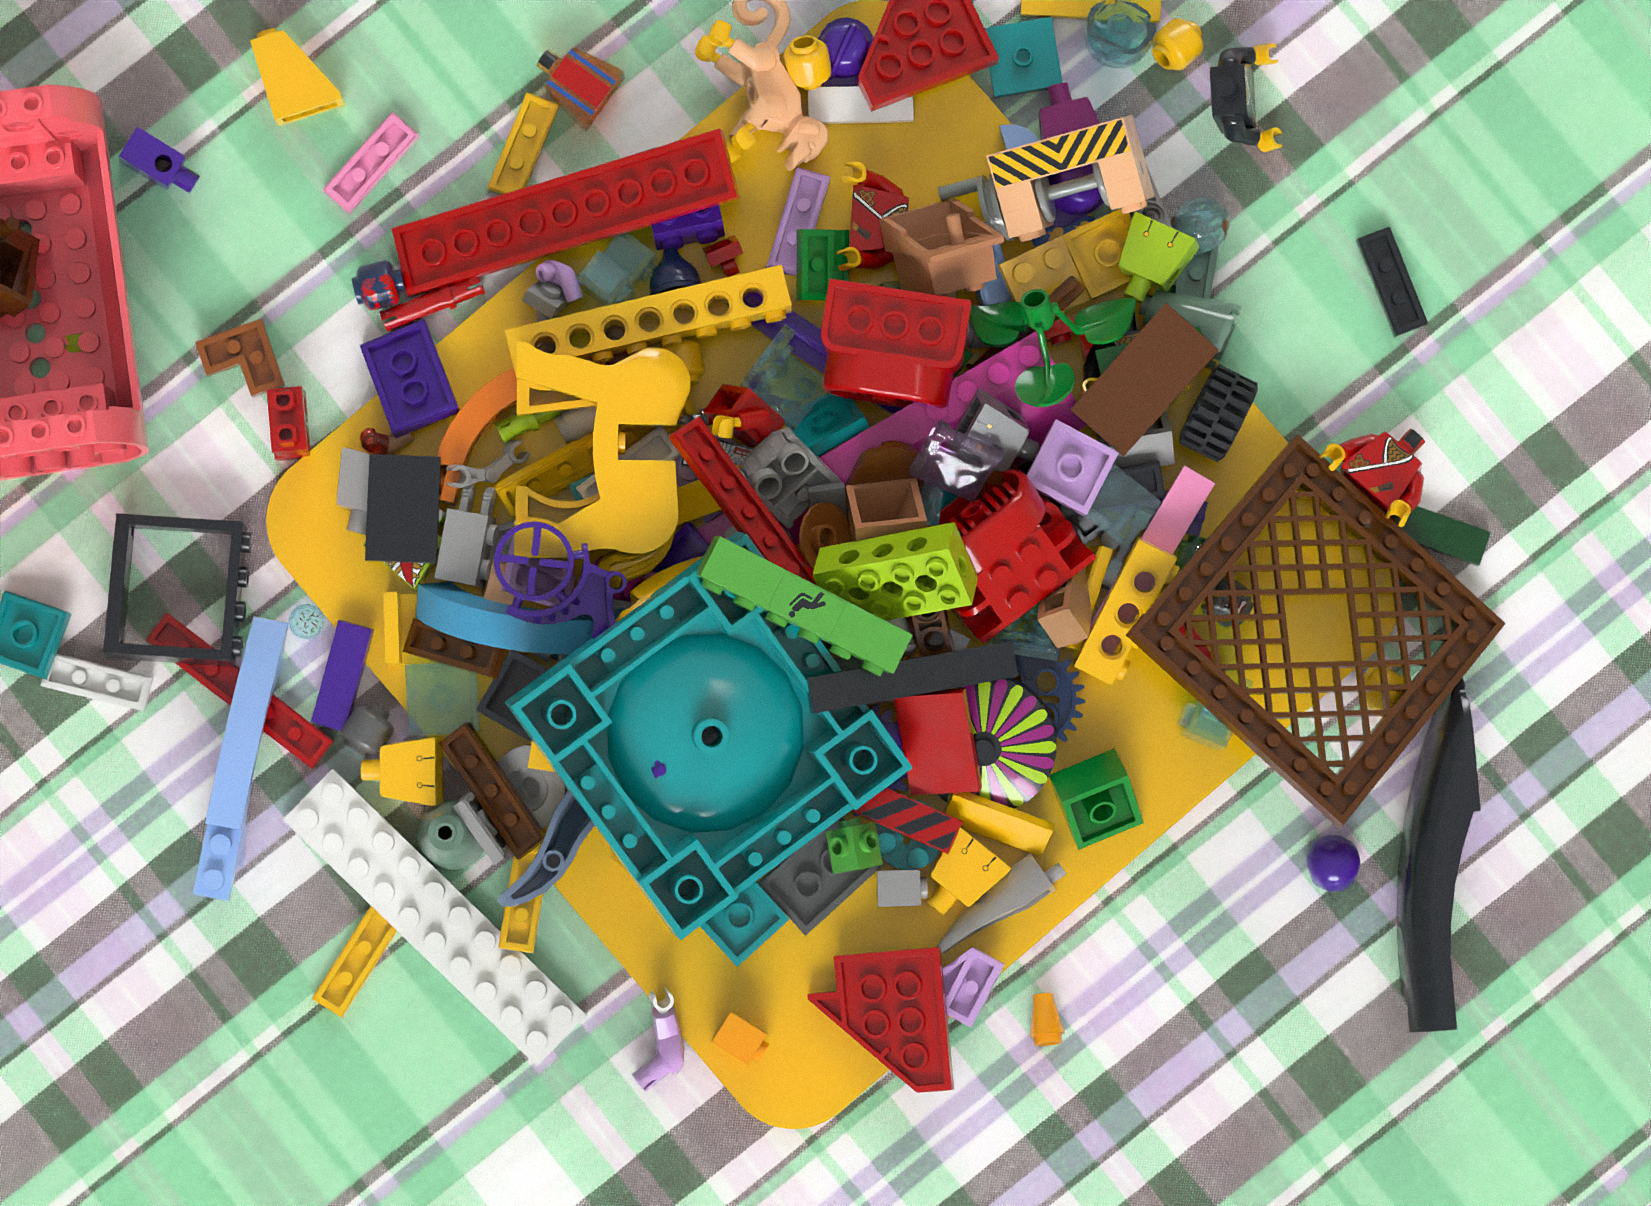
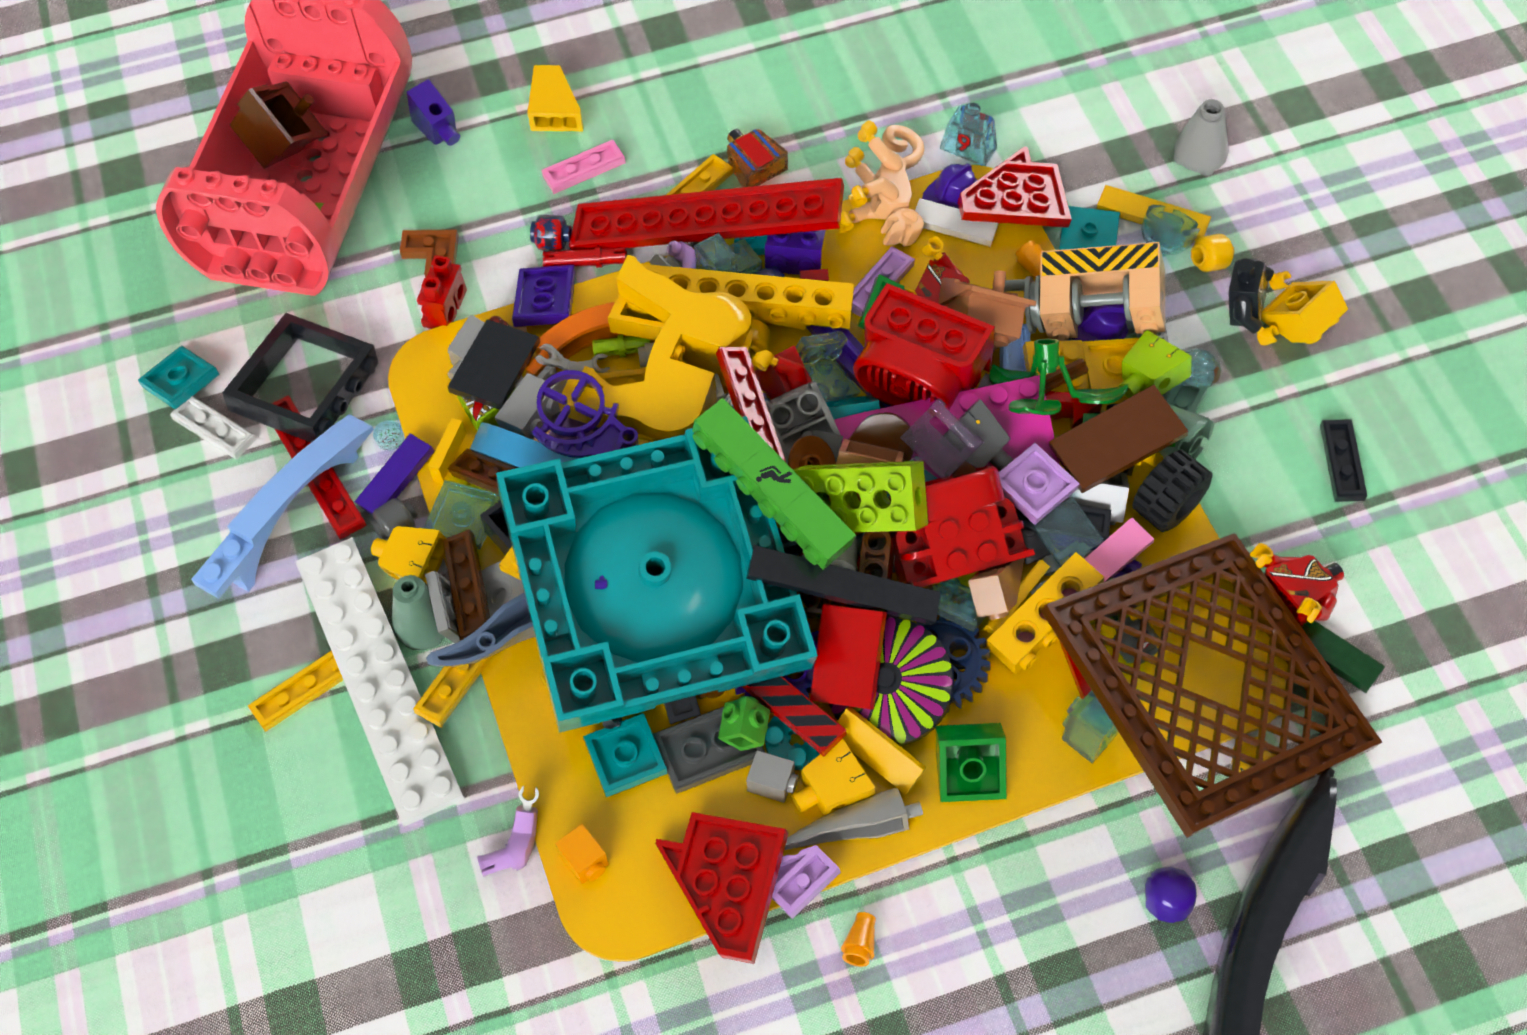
camera: 25 degrees right, 25 degrees down
(807, 62) = (925, 177): yellow head -> none
(973, 133) = (1030, 257): none -> light orange cone
(1302, 93) = (1305, 310): none -> yellow slope

